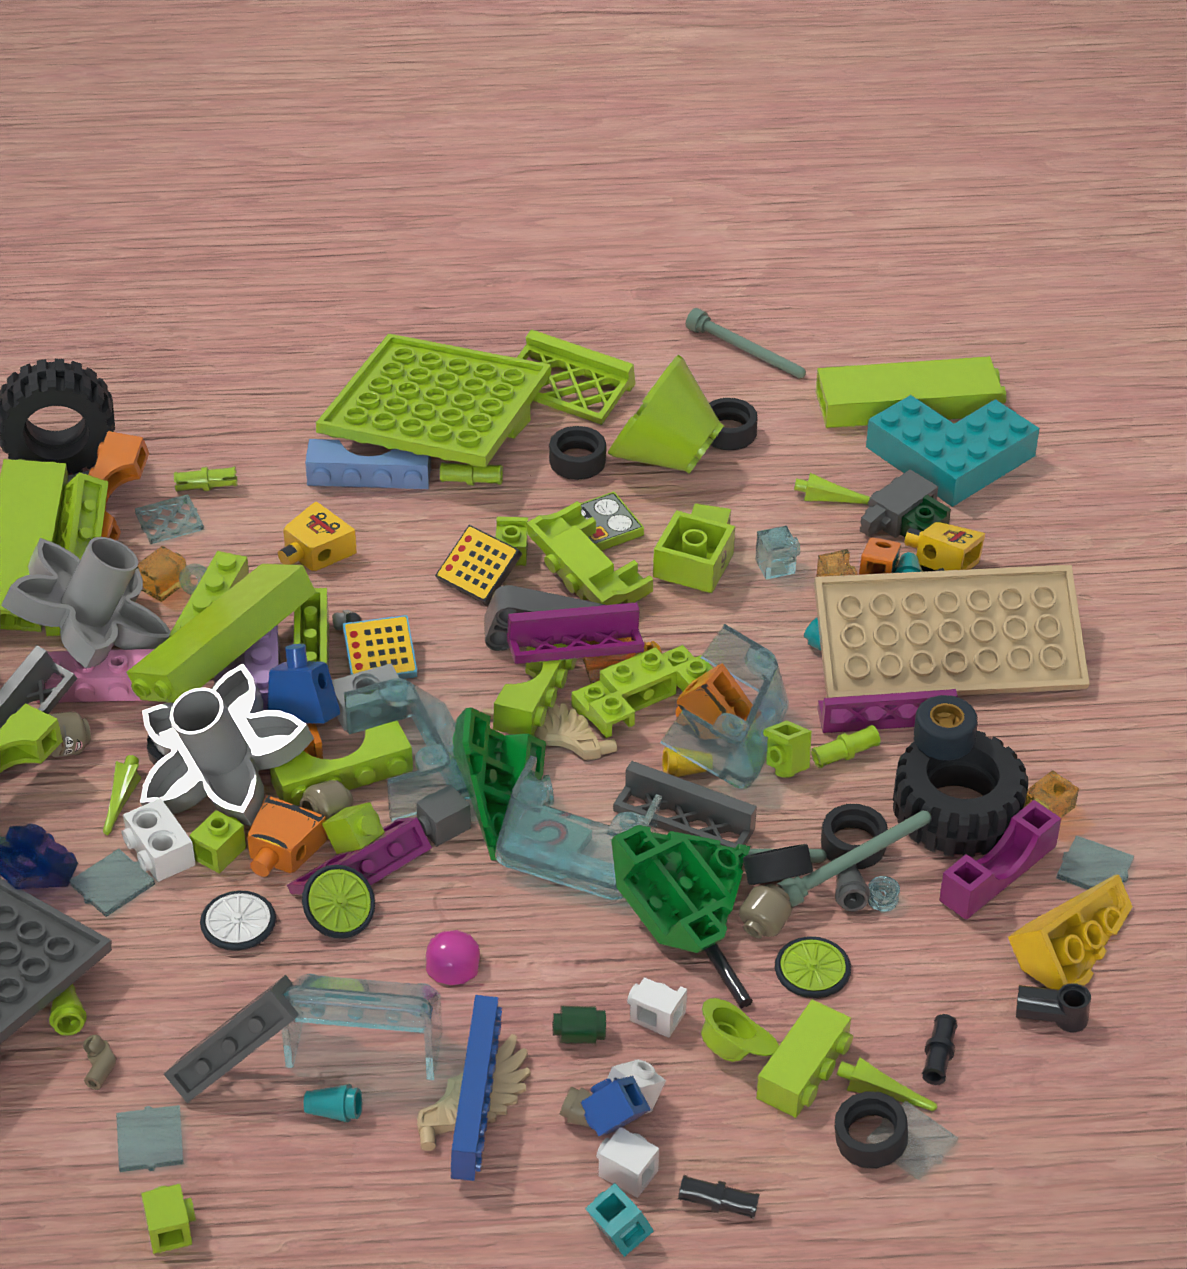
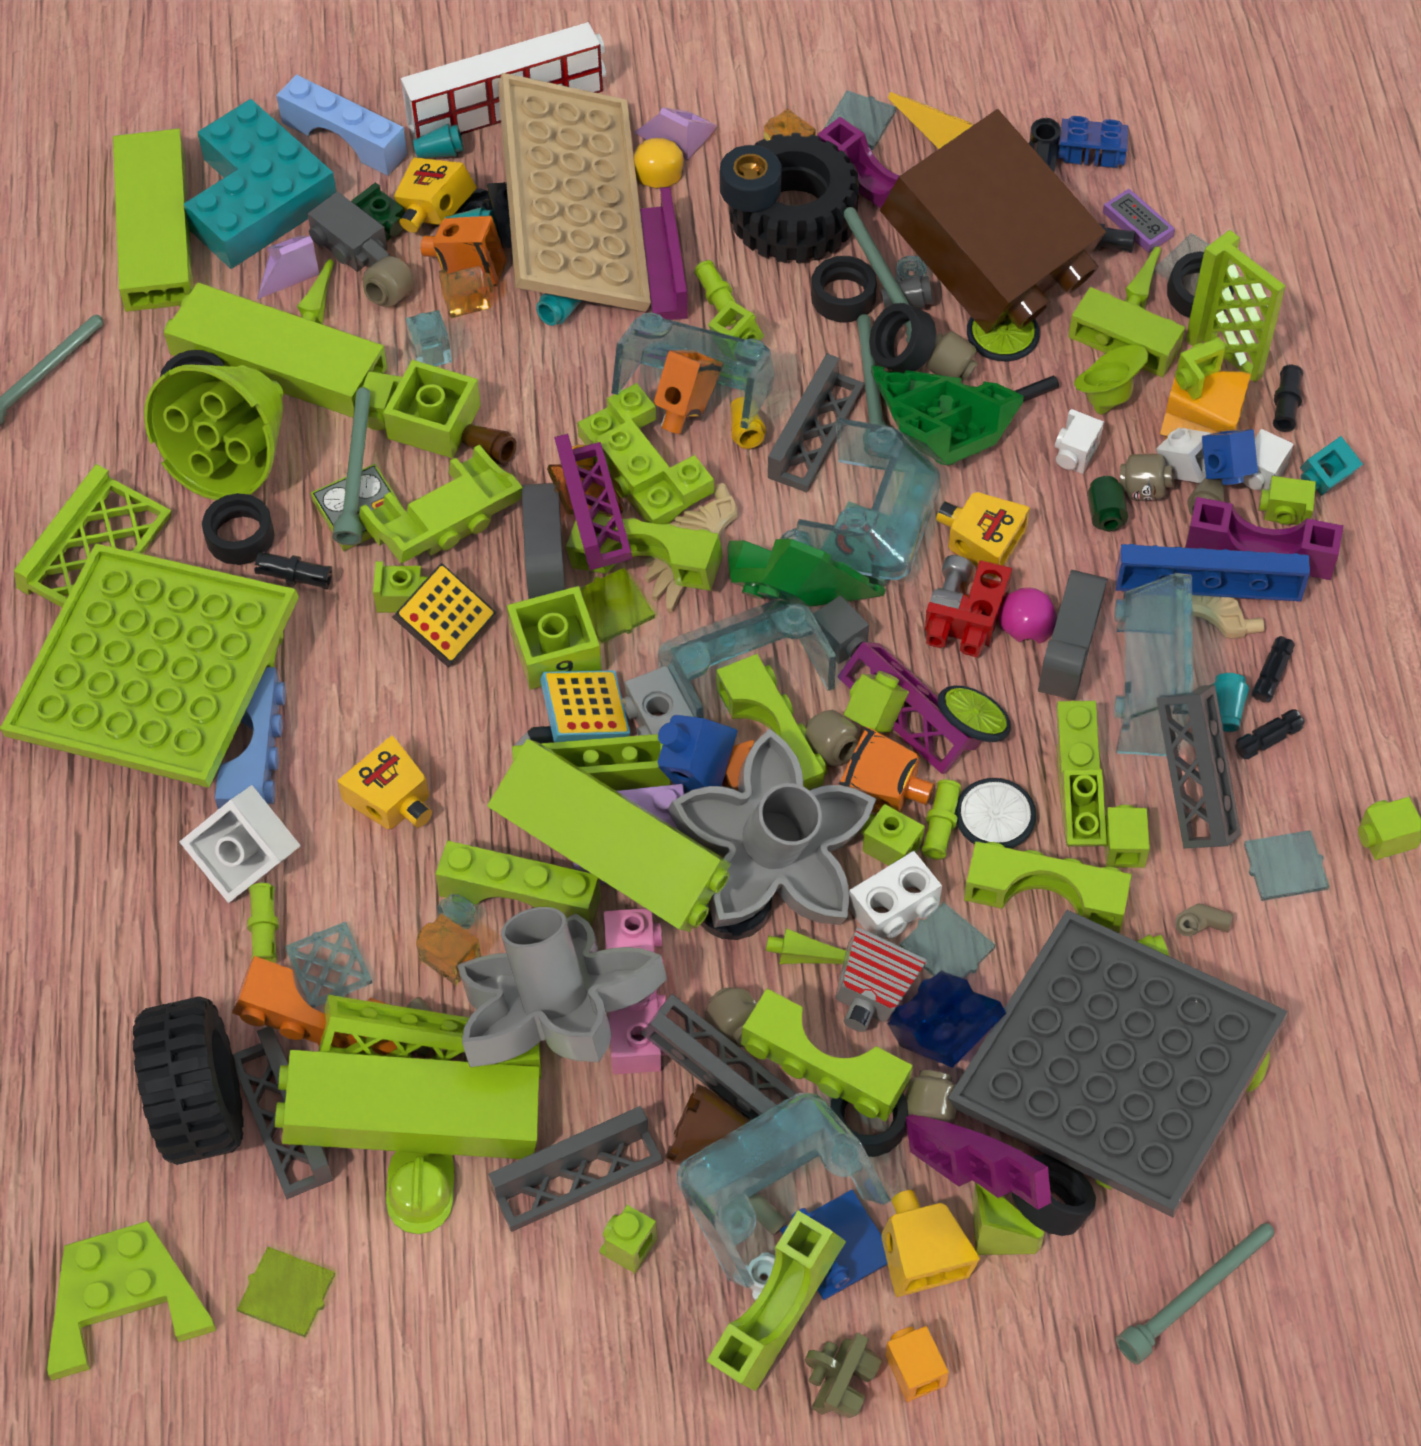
camera: 90 degrees left, 15 degrees up
(80, 818) = (874, 978): none -> light grey torso
(136, 977) = (1003, 872): none -> lime arch
(192, 1005) = (1126, 837): none -> lime brick
(234, 878) = (941, 819): none -> lime pin
(247, 975) = (1080, 774): none -> lime slope
(271, 456) = (239, 843): none -> white slope
(295, 1136) = (1269, 734): none -> black axle
(372, 1148) = (1273, 669): none -> black axle
(375, 960) = (1072, 635): none -> dark grey beam
(445, 625) = (554, 635): none -> lime brick
(463, 906) = (963, 615): none -> red hips
(488, 675) = (615, 605): none -> clear neon green piece
(530, 1119) = (1220, 527): none -> magenta arch
(535, 484) = (293, 570): none -> black pin
(548, 926) = (984, 528): none -> yellow torso
(573, 1178) = (1287, 500): none -> lime brick
(607, 1050) = (1146, 477): none -> dark tan head
(634, 503) = (348, 528): none -> sand green piece
(663, 595) = (495, 442): none -> reddish brown cone
(694, 1111) = (1214, 411): none -> light orange piece
(713, 1062) = (1198, 363): none -> lime bracket
(767, 463) = (299, 354): none -> lime brick
(802, 1107) = (1214, 296): none -> lime fence
(844, 528) = (387, 281): none -> dark tan head
(865, 470) = (288, 265): none -> lavender slope
(913, 924) = (994, 224): none -> reddish brown brick
(971, 1090) = (1133, 213): none -> tile
(1013, 509) = (373, 138): none -> light blue arch
(1013, 707) = (658, 162): none -> yellow hair
(1017, 555) = (439, 143): none -> teal cone
(1055, 724) = (679, 126): none -> lavender slope
(1085, 1055) = (1106, 135): none -> blue hinge
(1108, 616) = (468, 90): none -> white brick

